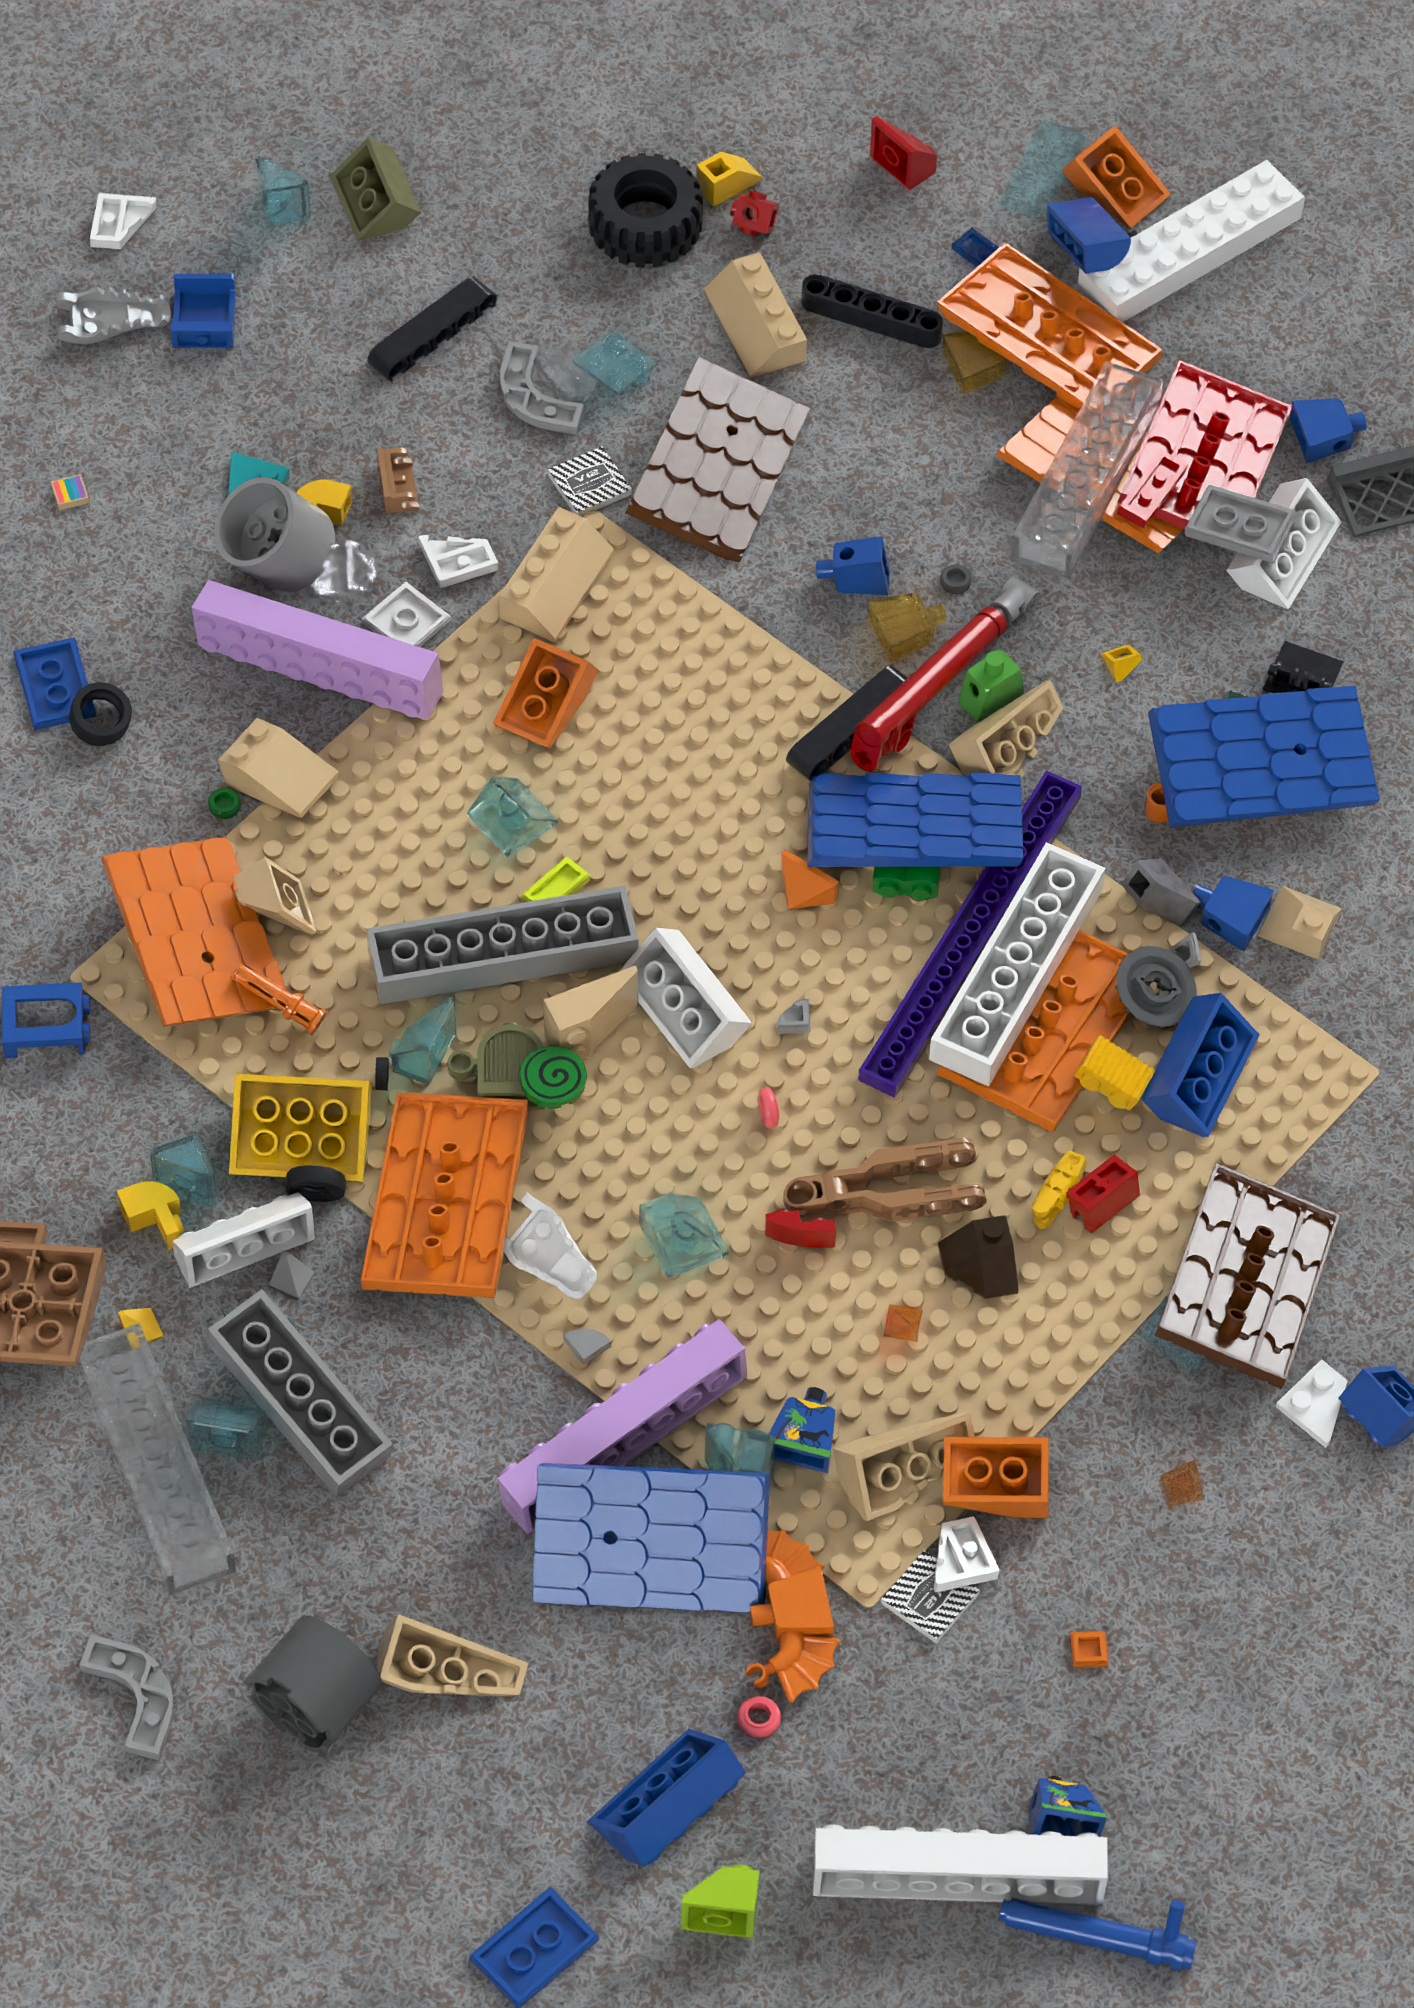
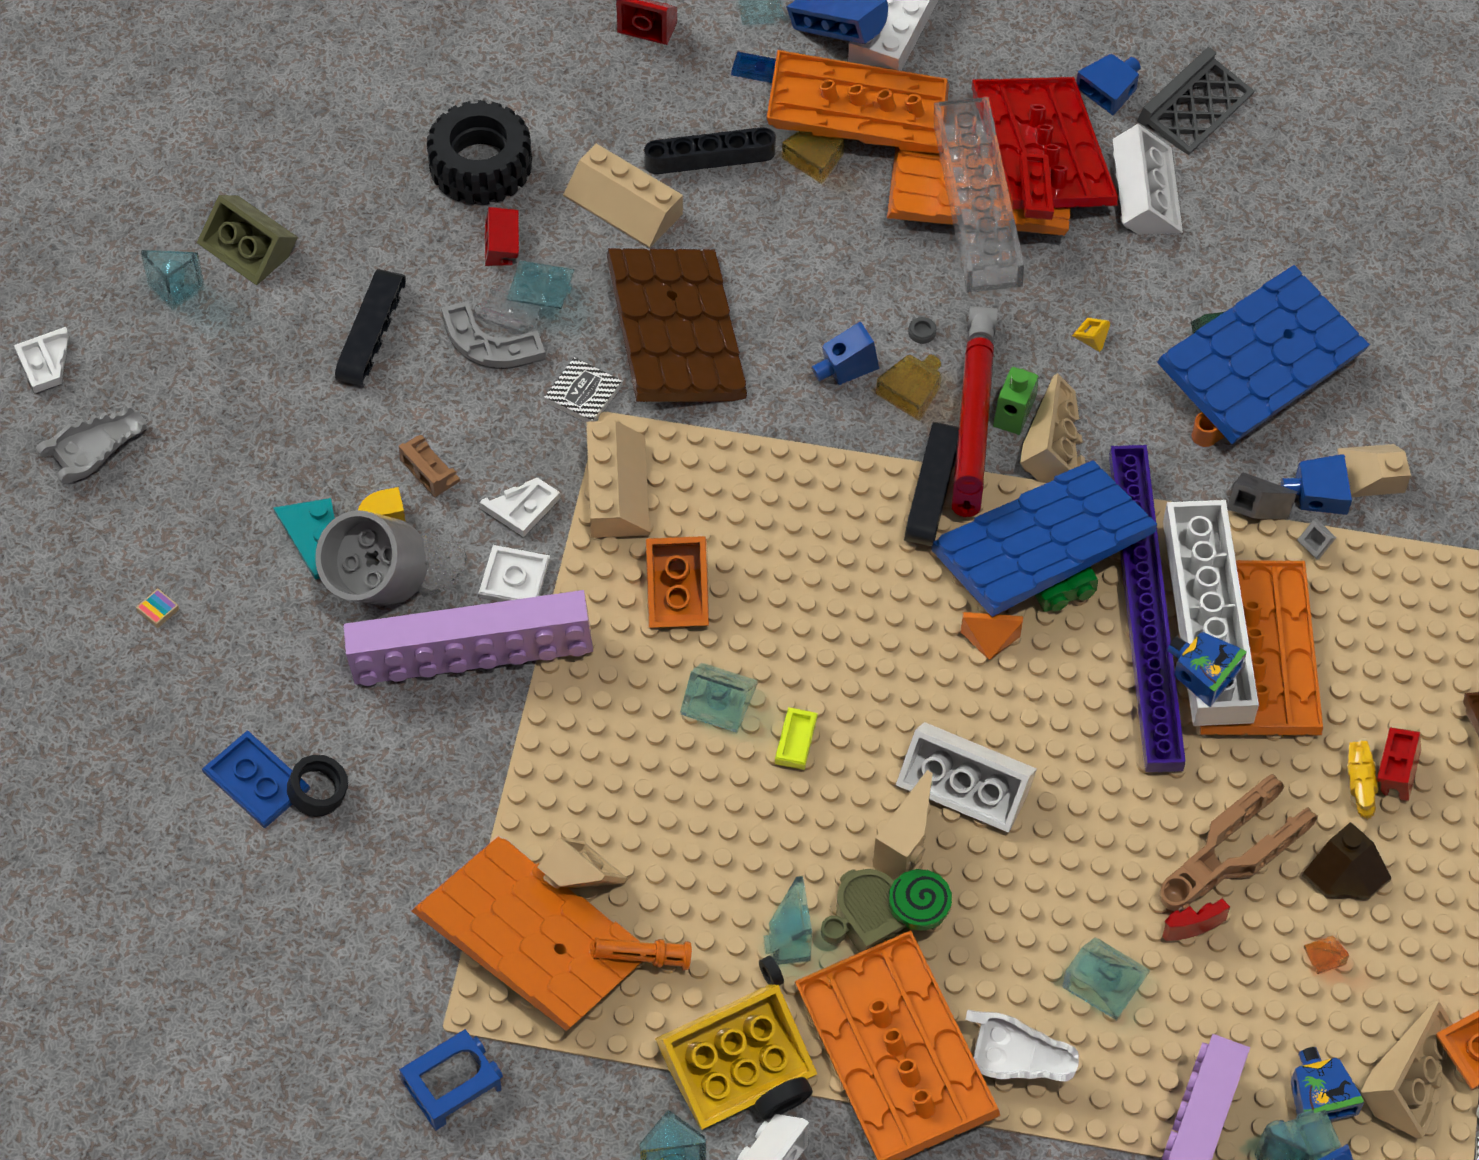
camera: 30 degrees left, 0 degrees up
(203, 311) = (169, 402): blue panel -> none
(224, 803) = (471, 808): green tile -> none
(276, 769) = (501, 756): tan slope -> none
(502, 944) = (793, 809): light grey brick -> none
(586, 1343) = (1096, 1113): light grey tile -> none
(612, 300) = (501, 236): none -> red hinge
(725, 177) = (523, 96): yellow slope -> none
(764, 213) = (575, 116): red brick -> none
(768, 1108) = (1096, 832): coral piece -> none
(795, 1019) = (1061, 747): light grey tile -> none
(963, 1003) = (1206, 665): none -> blue torso
(1114, 1073) = (1339, 662): yellow brick -> none
(1172, 978) = (1316, 559): dark grey gear -> none
(1200, 1064) = (1392, 620): blue slope -> none
(1240, 523) = (1116, 181): light grey tile -> none
(1300, 670) = (1231, 277): black hinge -> none

